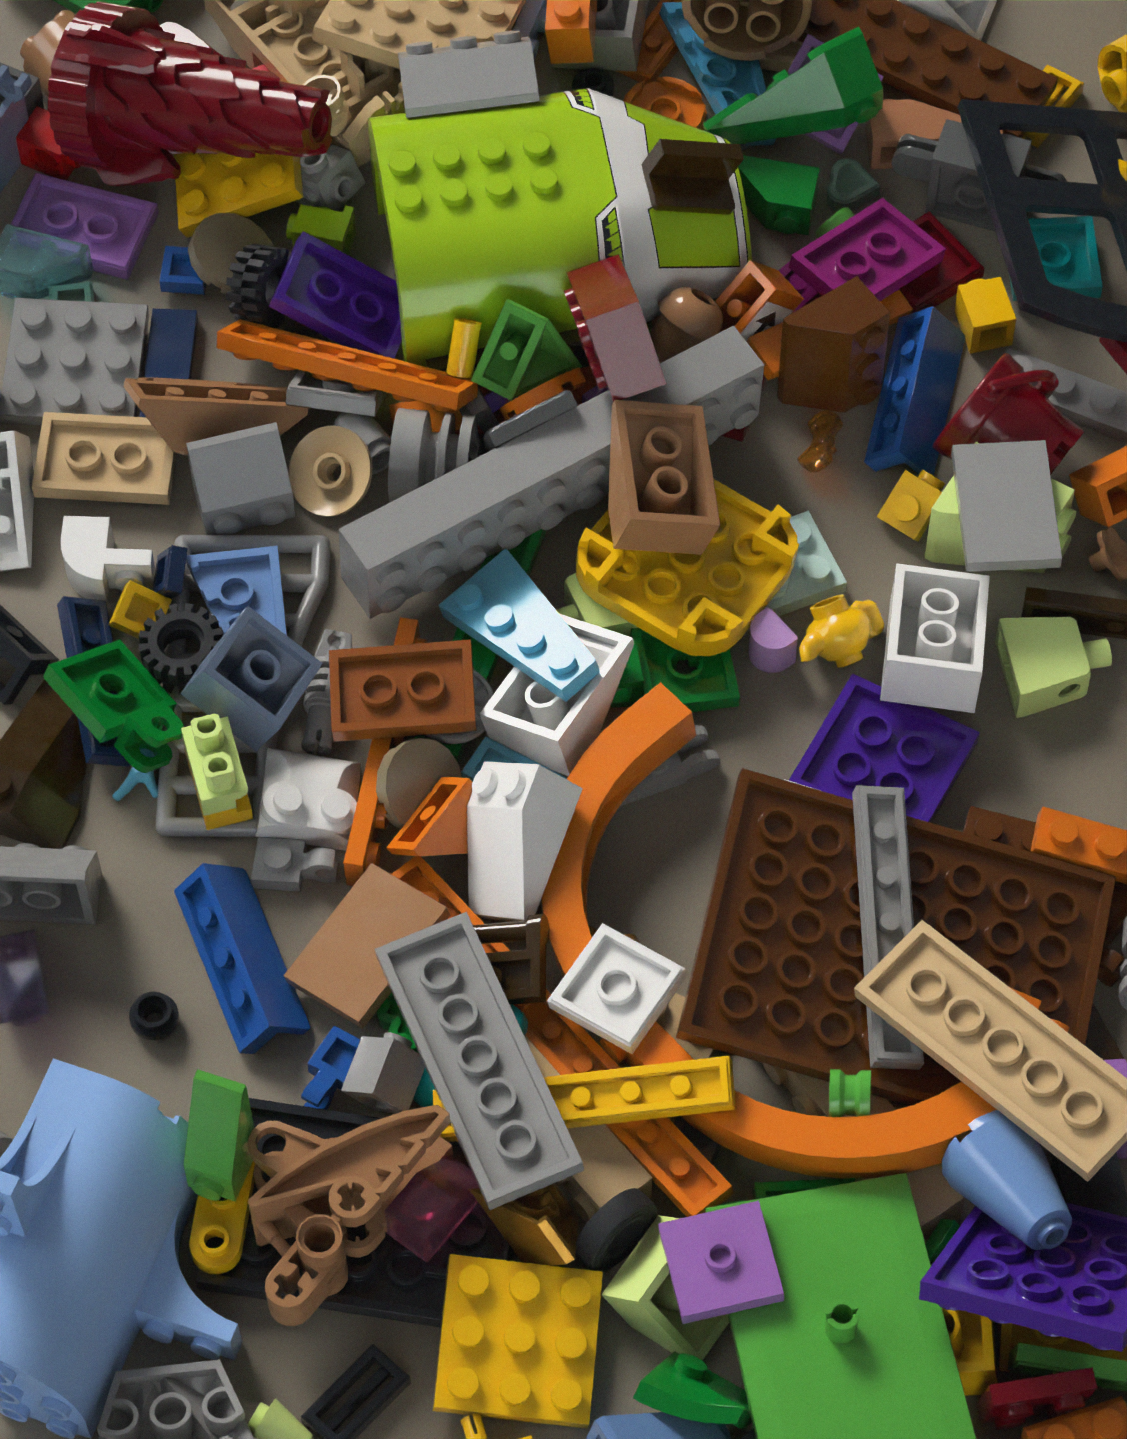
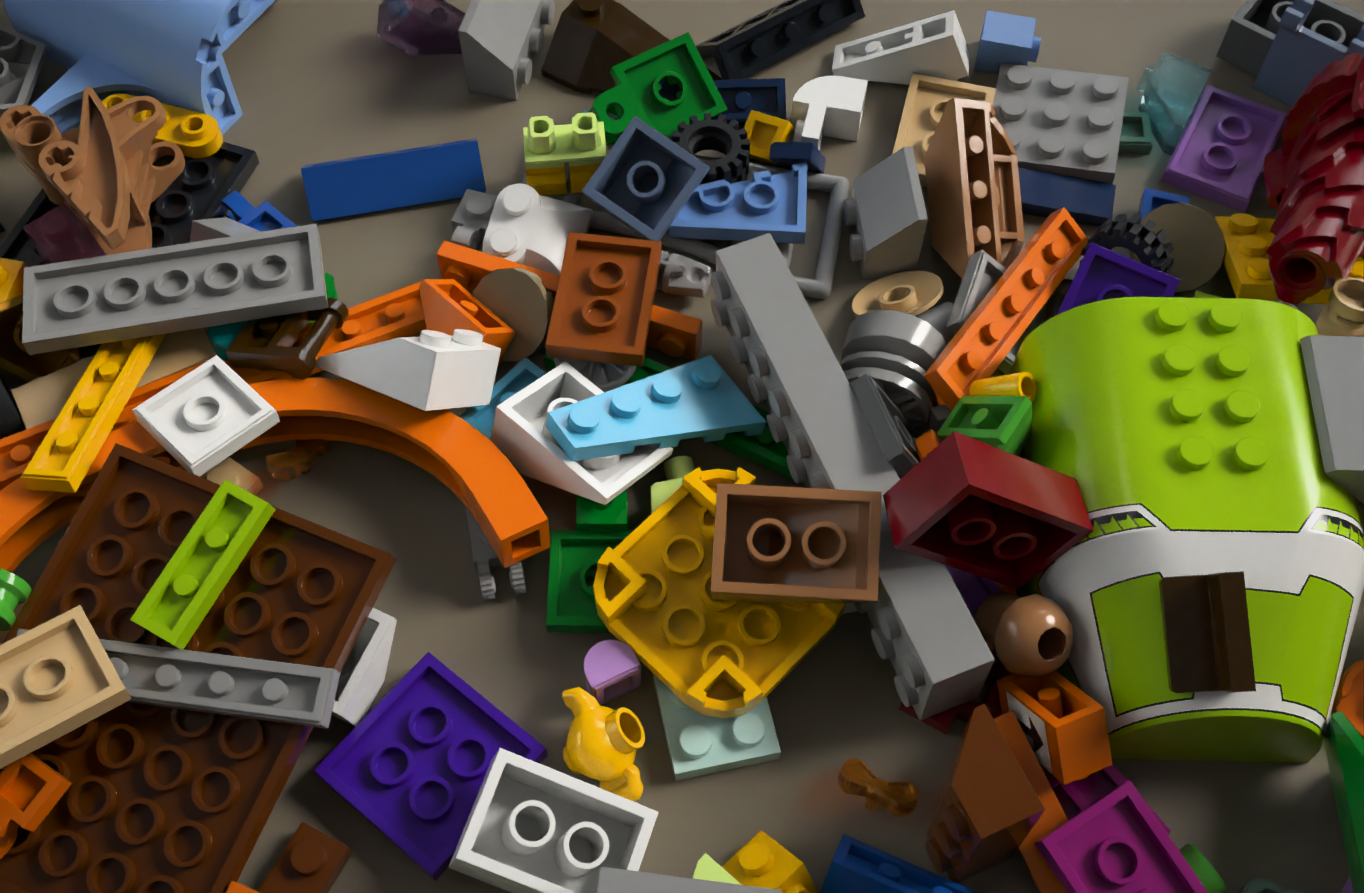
camera: 100 degrees right, 0 degrees up
(152, 1003) = (360, 111): black plate -> none
(218, 1137) = (165, 72): bright green slope -> none
(341, 960) = (369, 257): medium nougat tile -> none
(780, 193) = (1254, 814): green slope -> none
(788, 908) = (203, 564): none -> lime plate

